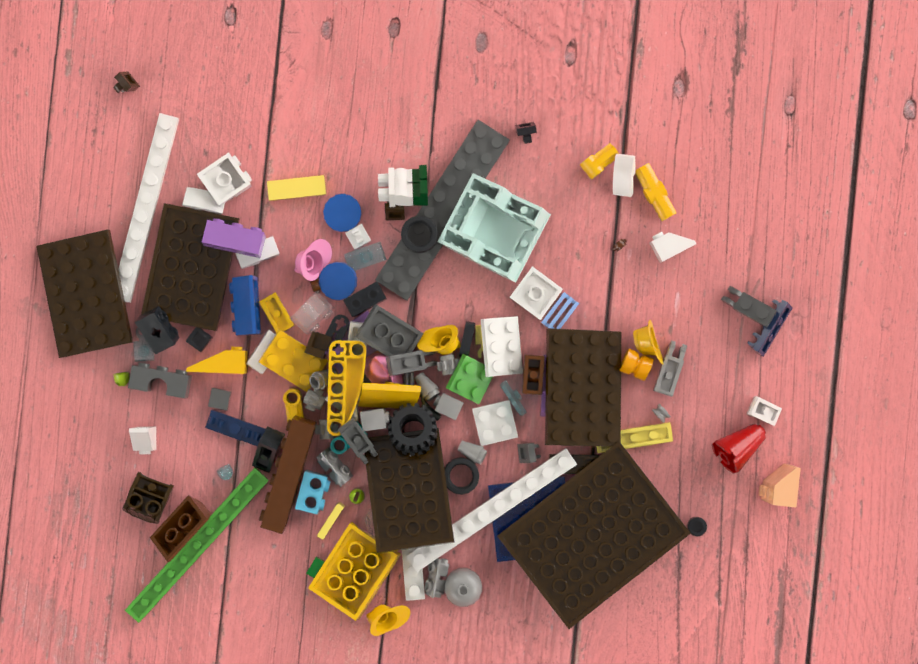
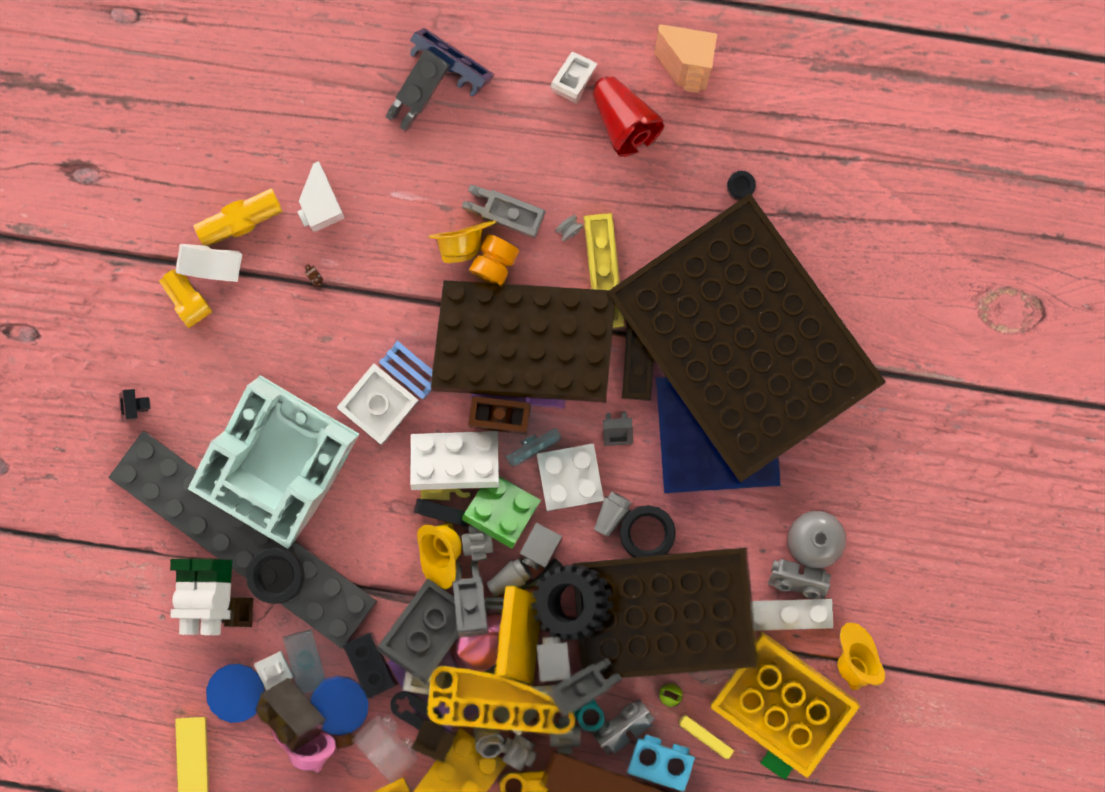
camera: 85 degrees left, 5 degrees down
(330, 250) = (290, 715): none -> dark brown brick
(496, 507) = (697, 482): white plate -> none

